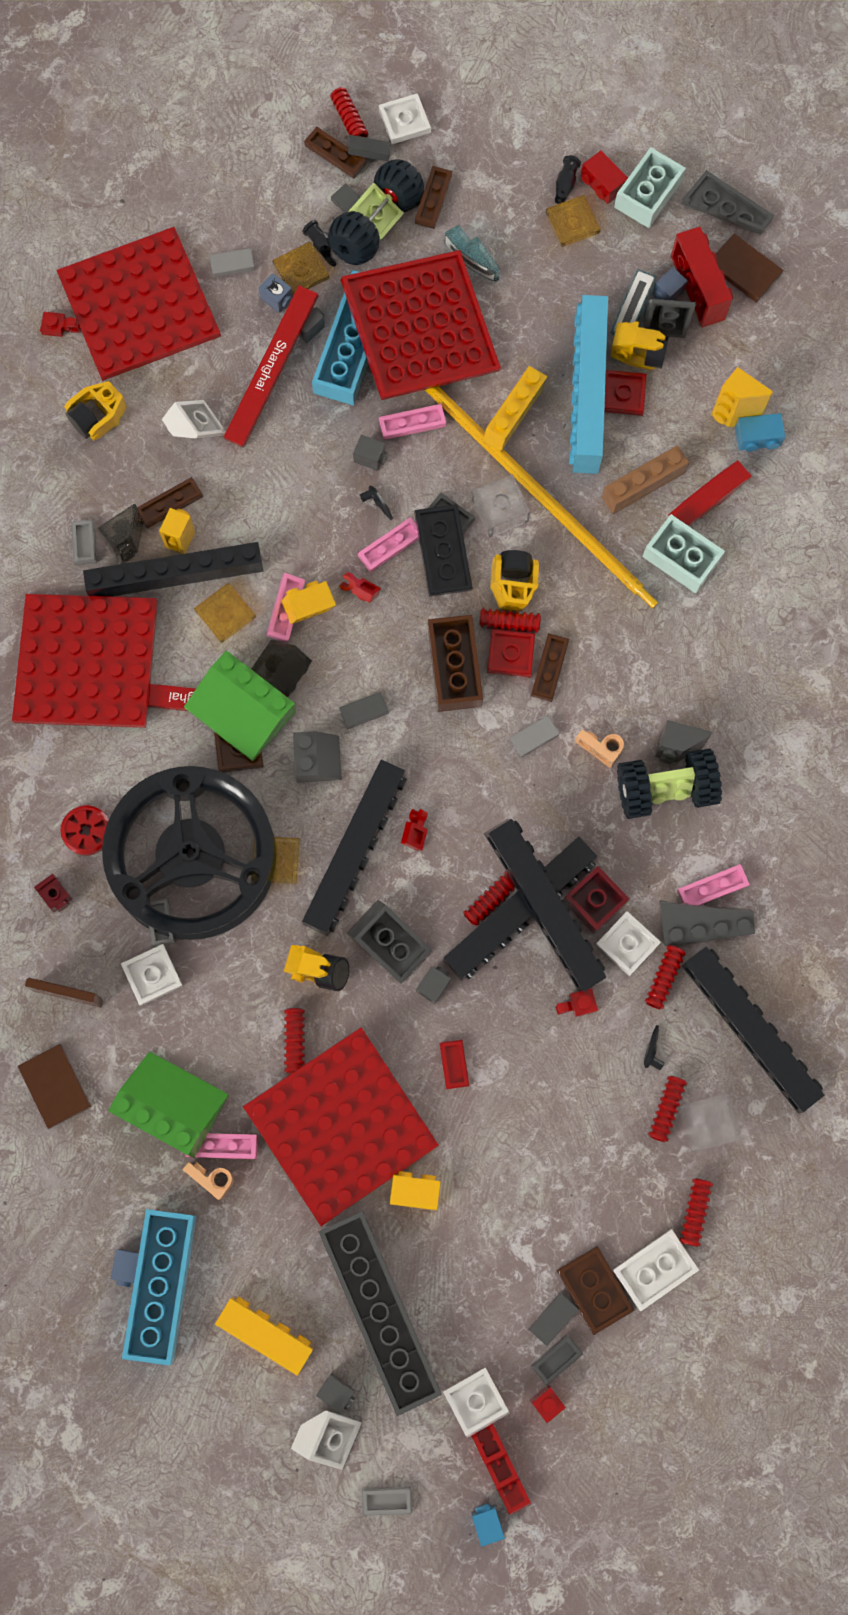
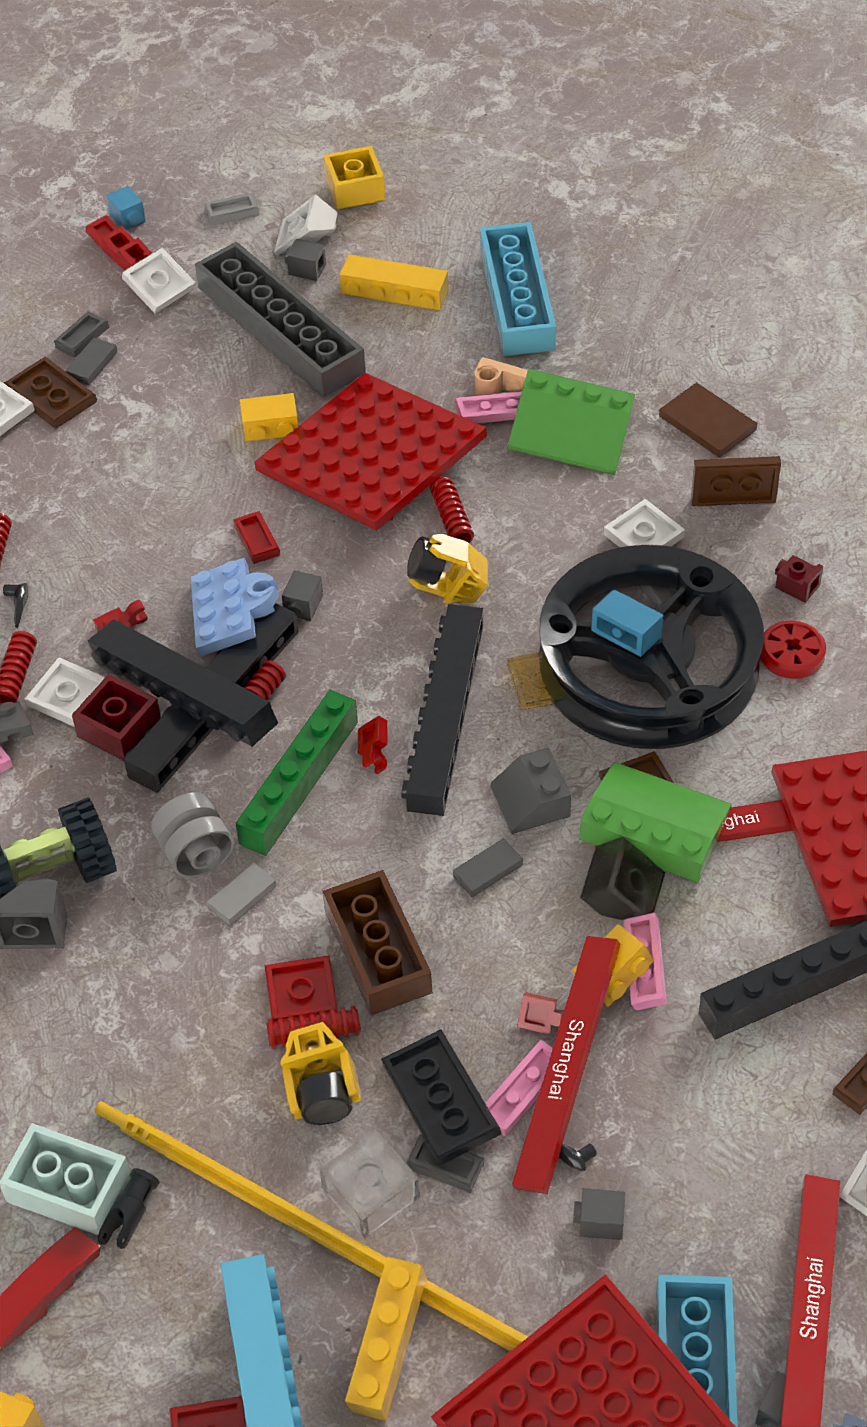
camera: 170 degrees right, 25 degrees down
(124, 1267) = (561, 299): sand blue brick -> none
(177, 530) = (842, 1008): yellow brick -> none
(204, 855) = (627, 622): none -> dark azure brick
(224, 612) = (729, 939): clear yellow tile -> none
(262, 1496) = (354, 177): none -> yellow brick
(358, 544) = (566, 1065): none -> red tile
(389, 941) = (373, 624): dark grey slope -> none
(412, 421) = (550, 1286): bright pink plate -> none
(474, 818) = (296, 772): none -> green brick
(493, 983) = (227, 604): none -> light blue plate
(547, 1404) = (83, 294): red brick -> none
(550, 667) = (240, 987): reddish brown tile -> none
(560, 776) = (192, 835): none -> light grey wheel
(599, 750) = (145, 894): light nougat plate -> none
(644, 535) = (128, 1208): none -> black piece
(645, 479) = (145, 1286): medium nougat brick -> none

